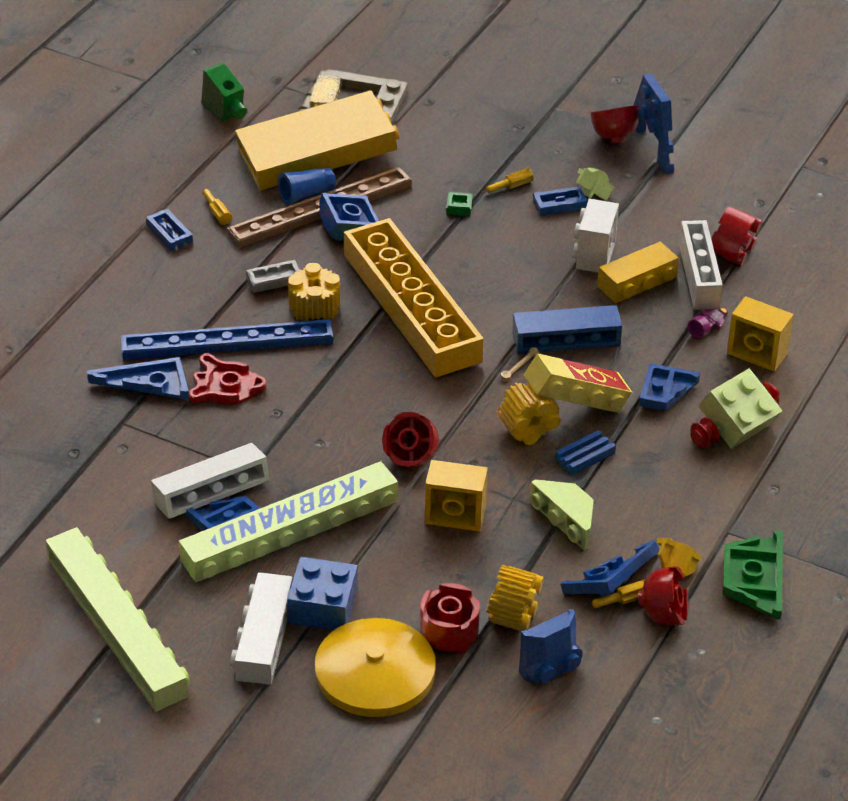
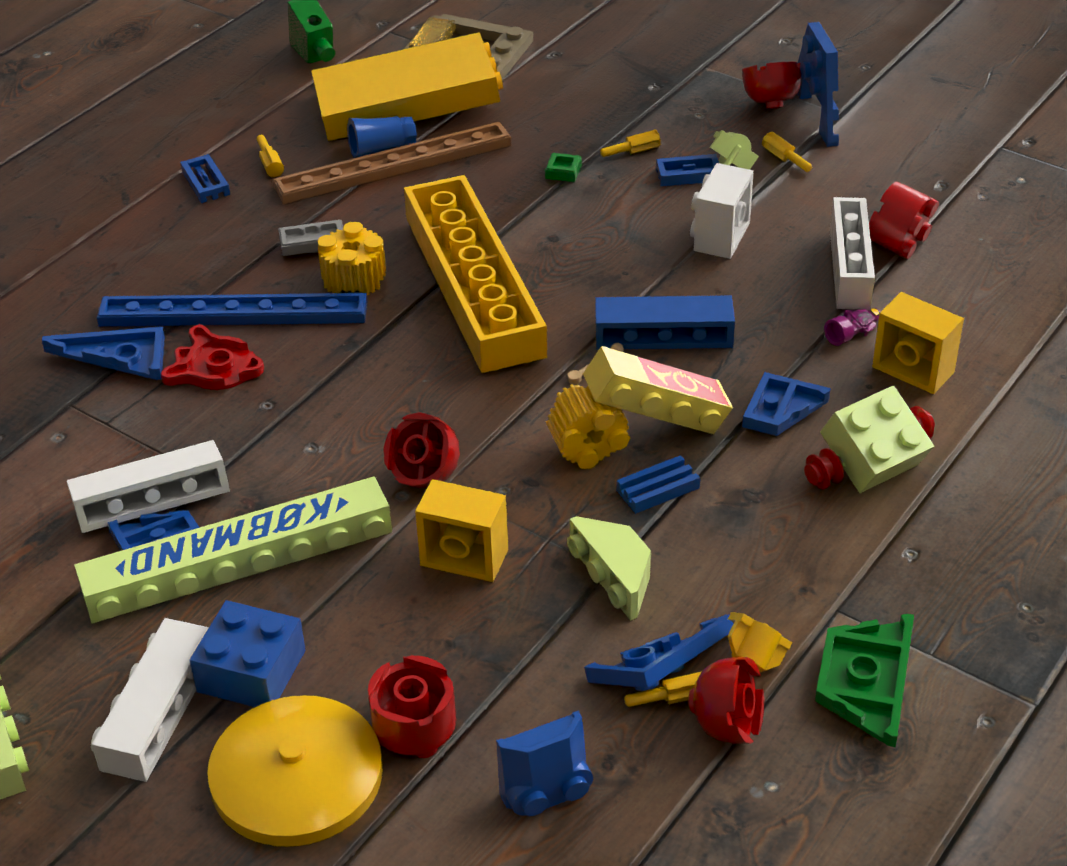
camera: 10 degrees right, 0 degrees up
(345, 213) = (416, 166): blue slope -> none
(514, 598) = (509, 684): yellow brick -> none
(633, 180) = (784, 150): none -> yellow axle
(637, 272) = (770, 258): yellow brick -> none

